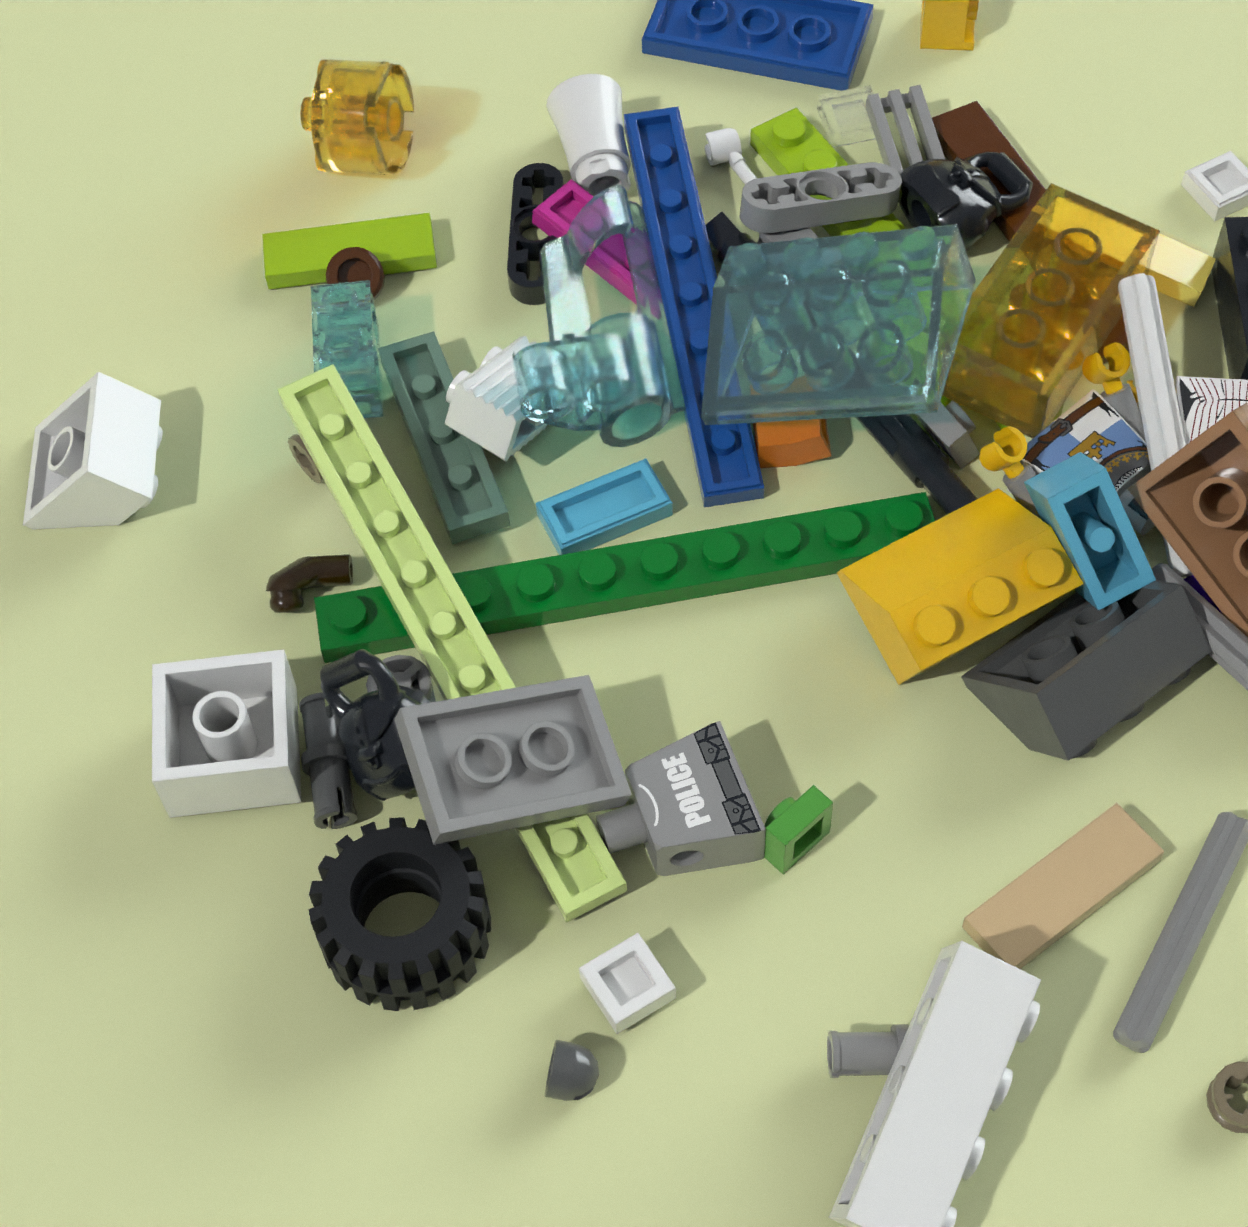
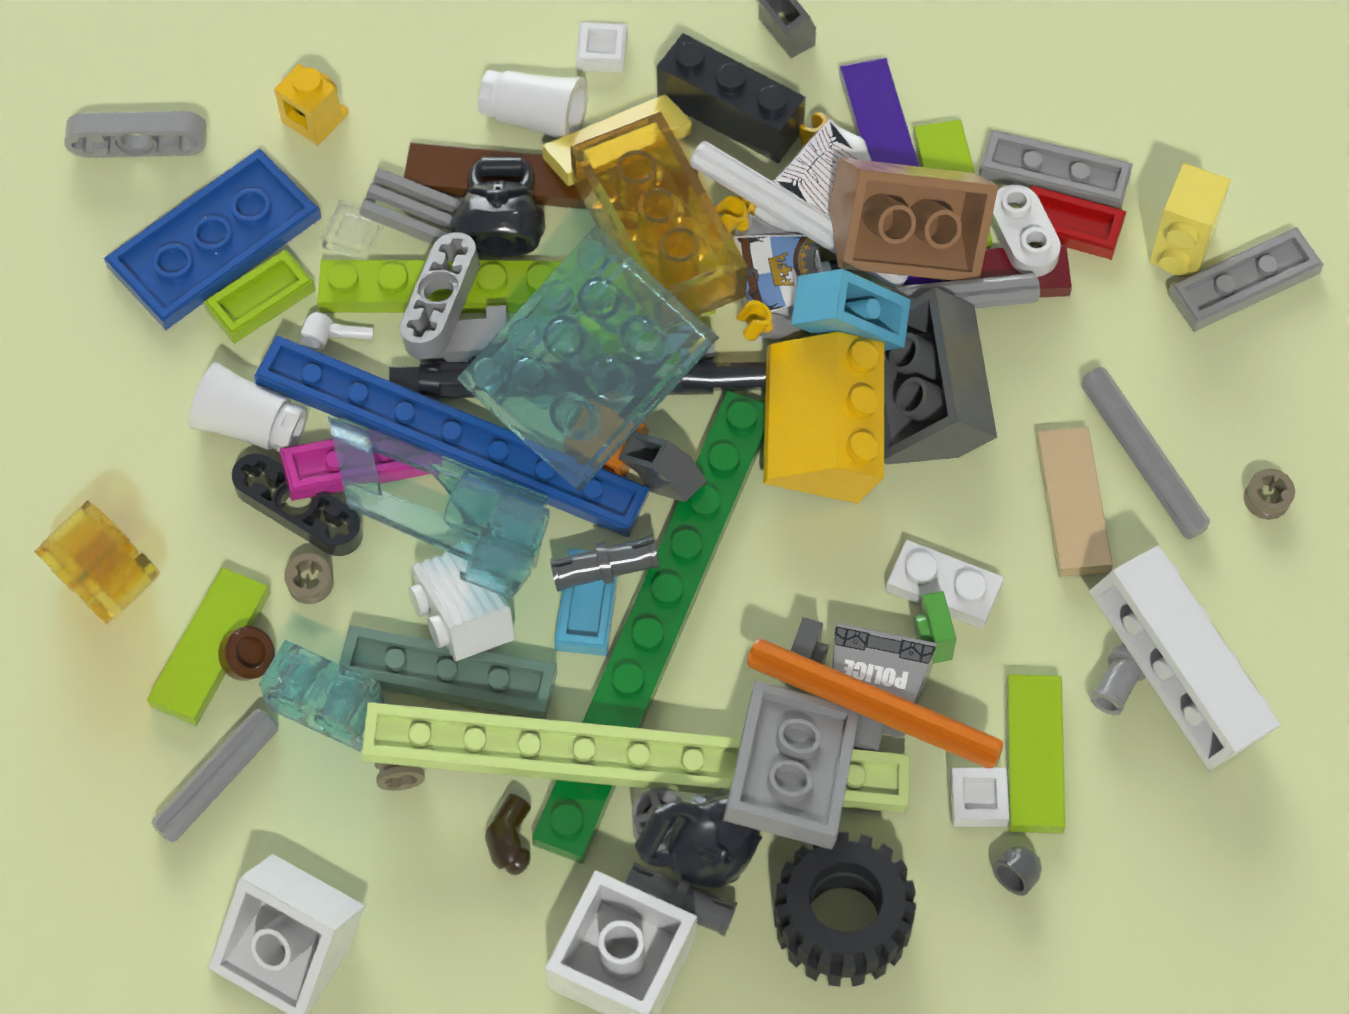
camera: 60 degrees left, 5 degrees up
(224, 325) = (214, 775): none -> light grey axle
(475, 294) = (292, 578): none -> dark tan bush
(642, 487) = (604, 563): none -> dark grey pin
(644, 809) = (875, 703): none -> orange axle
(673, 717) = (809, 642): none -> dark grey plate
(723, 1016) = (1035, 754): none -> lime tile
(726, 91) = (259, 296): none -> lime tile
(785, 475) = (662, 466): none -> dark grey piece
(864, 816) = (967, 588): none -> white plate
(1106, 161) = (534, 101): none -> white plant

